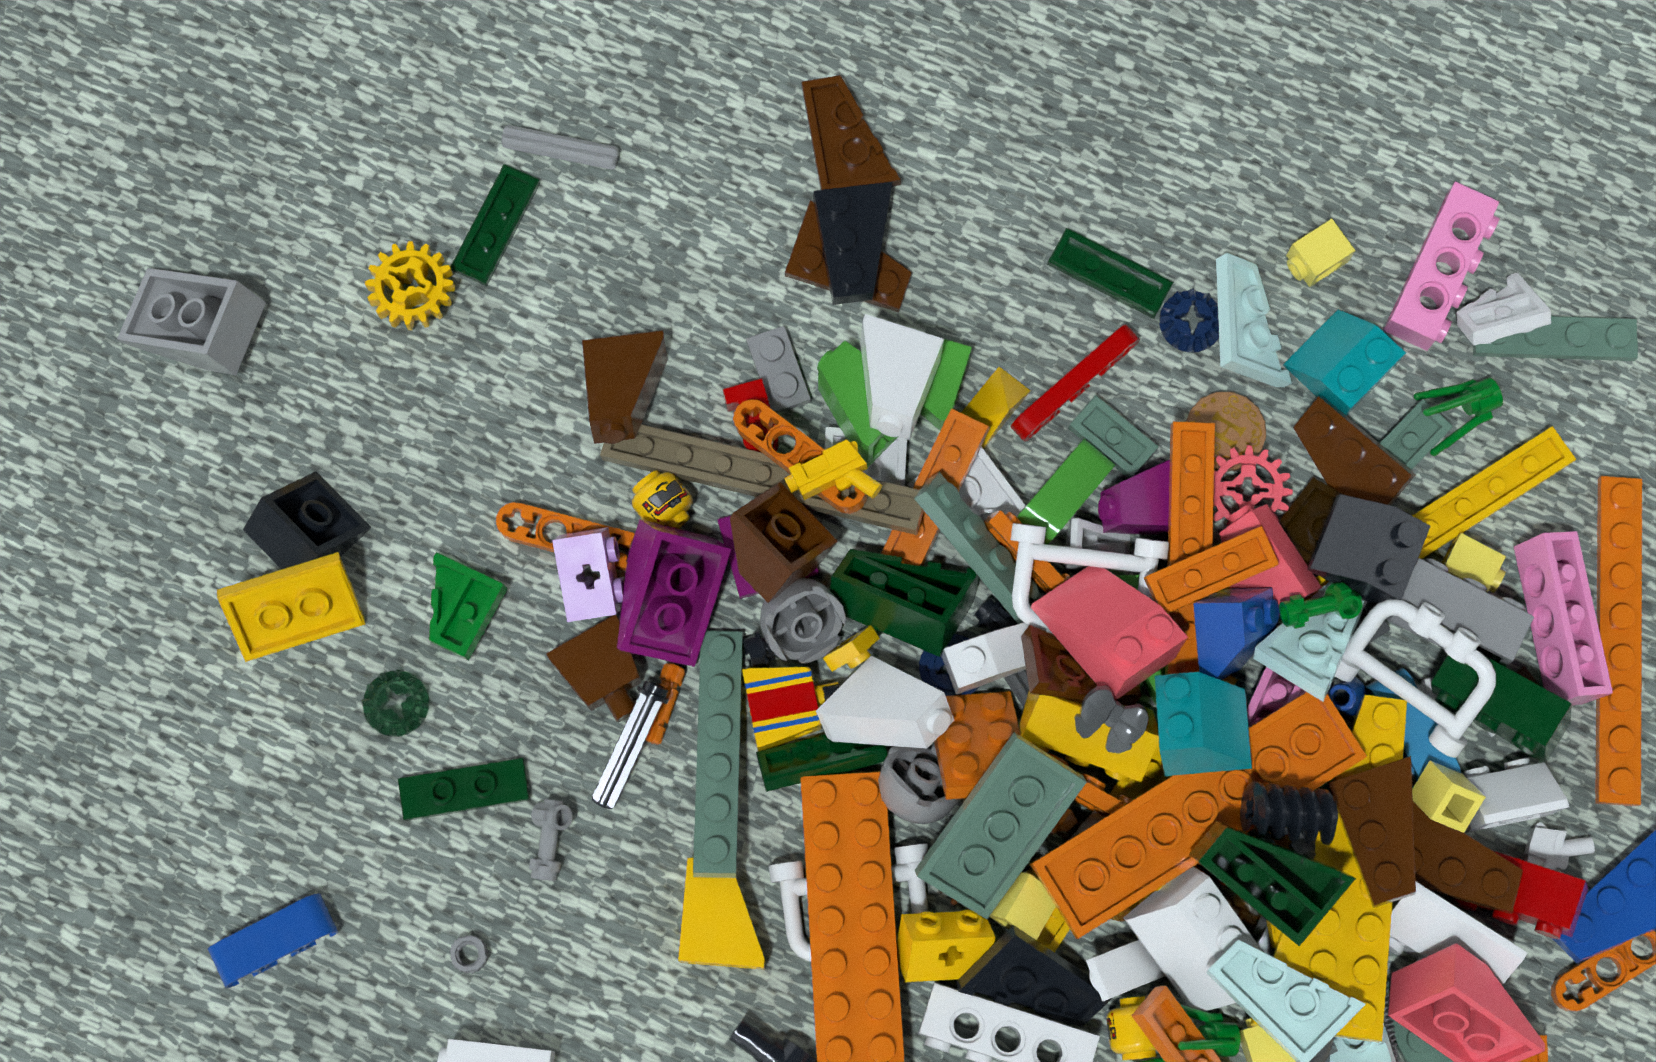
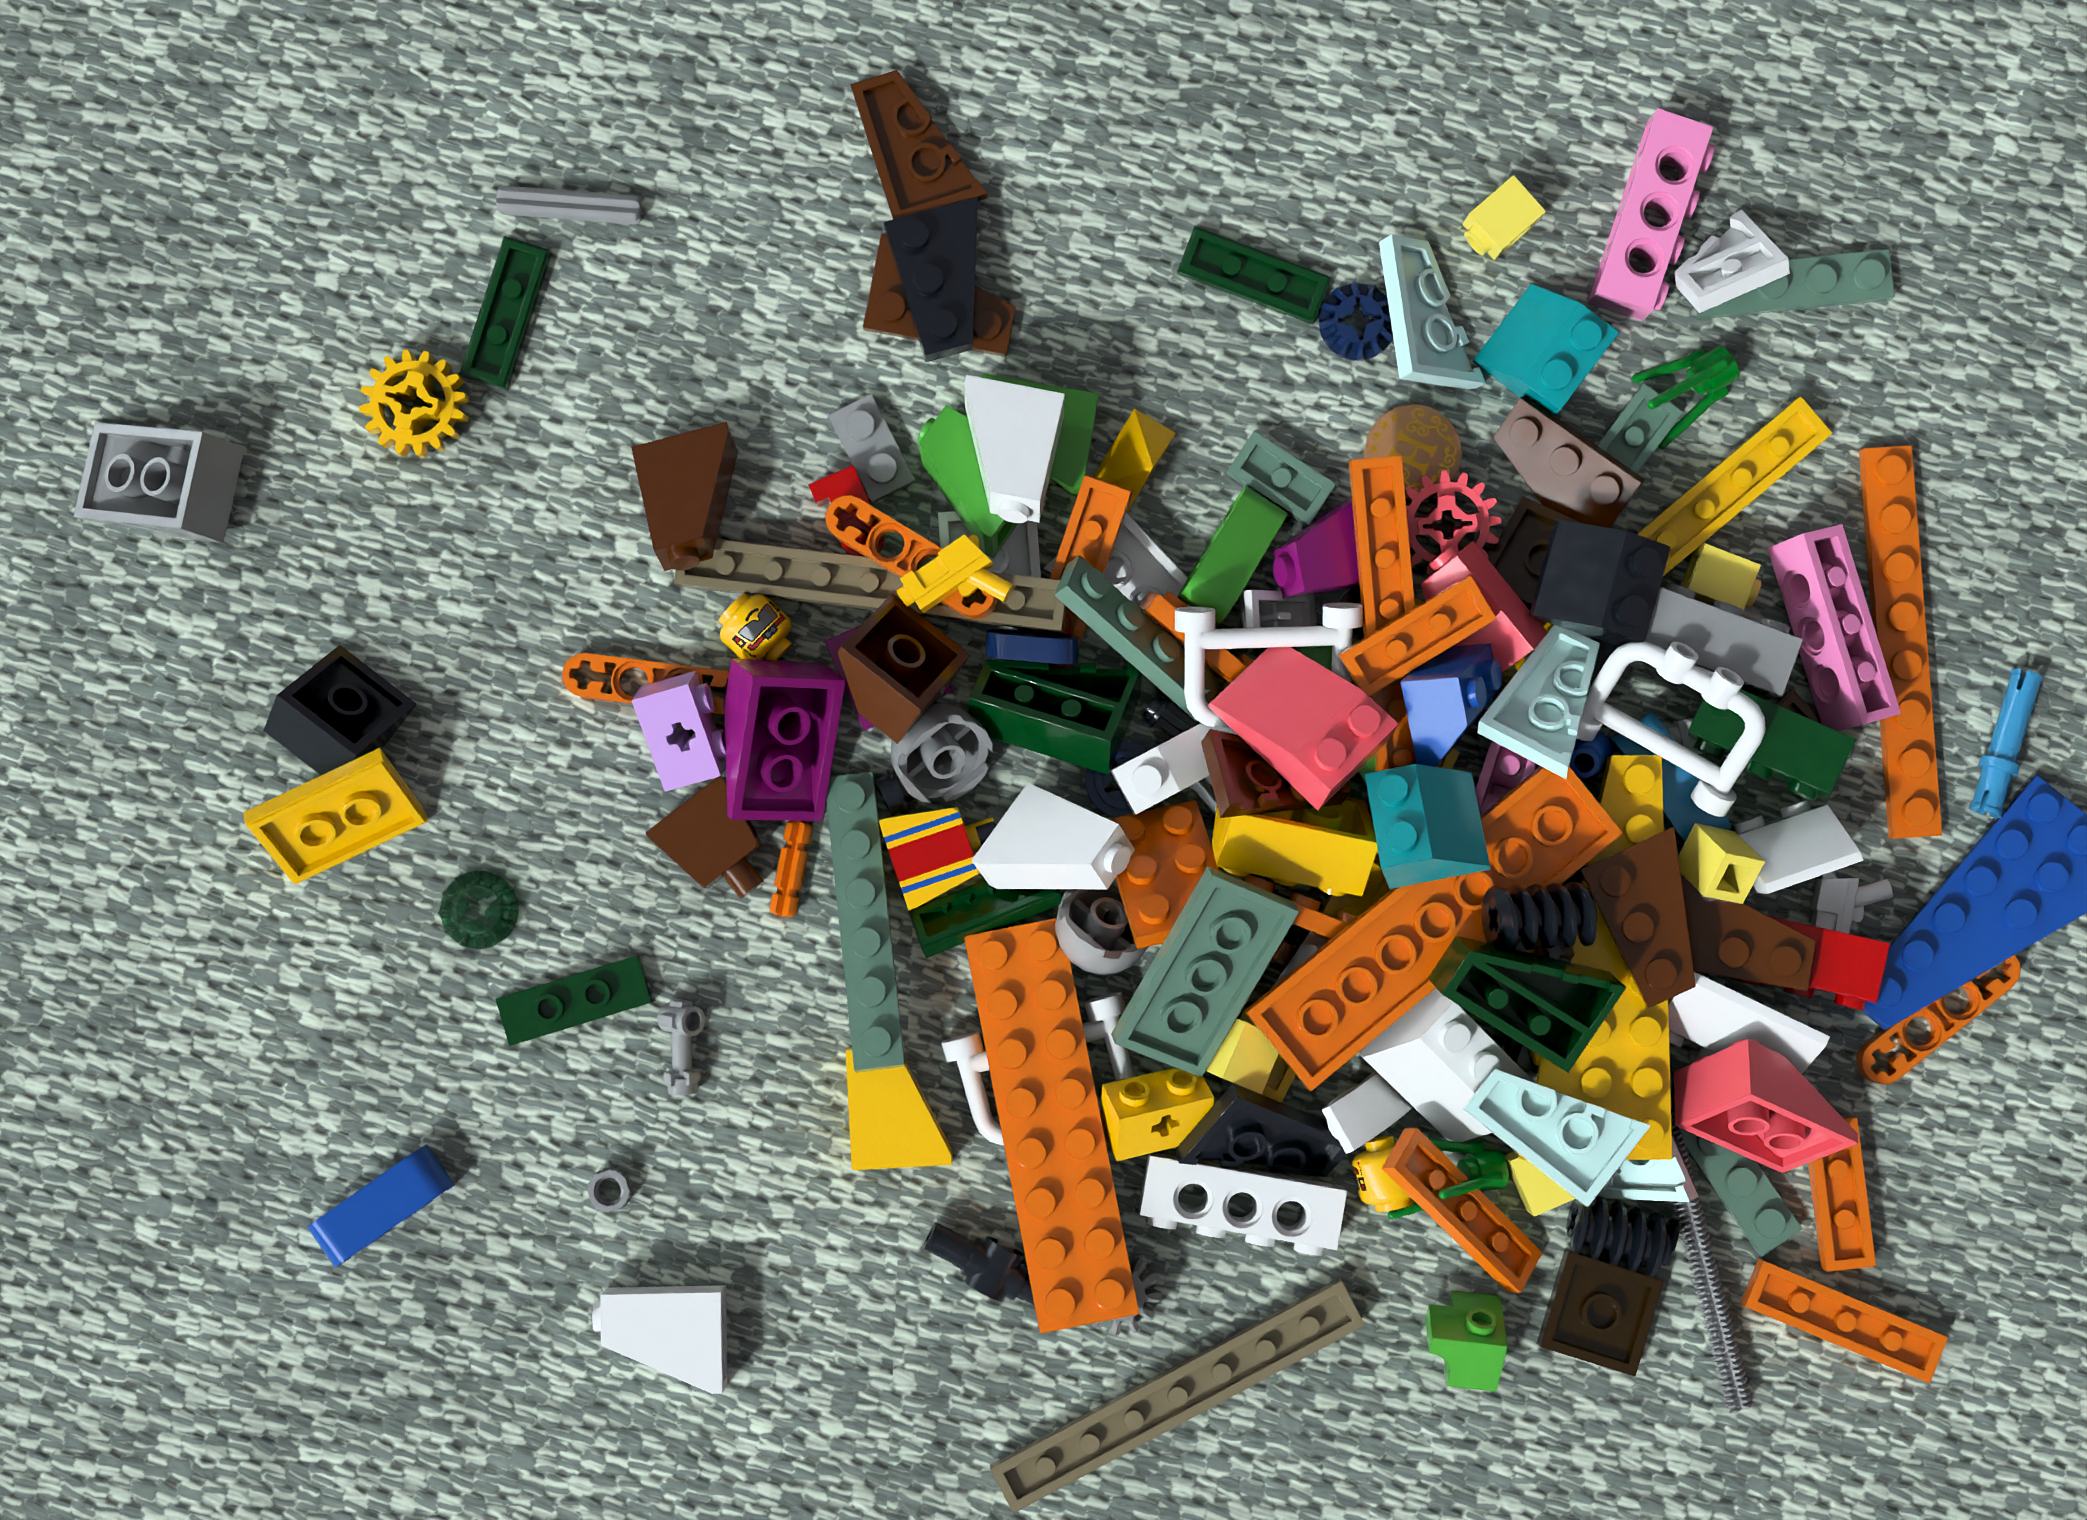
camera: 10 degrees left, 10 degrees up
(461, 606) = (537, 785): green wing -> none
(629, 744) = (760, 922): axle -> none
(852, 650) = (1004, 777): yellow plate -> none
(890, 542) = (1032, 646): none -> dark blue beam
(1074, 382) = (1227, 418): red beam -> none
(1126, 722) = (1336, 834): dark grey piece -> none
(1337, 599) = (1568, 648): green bar -> none

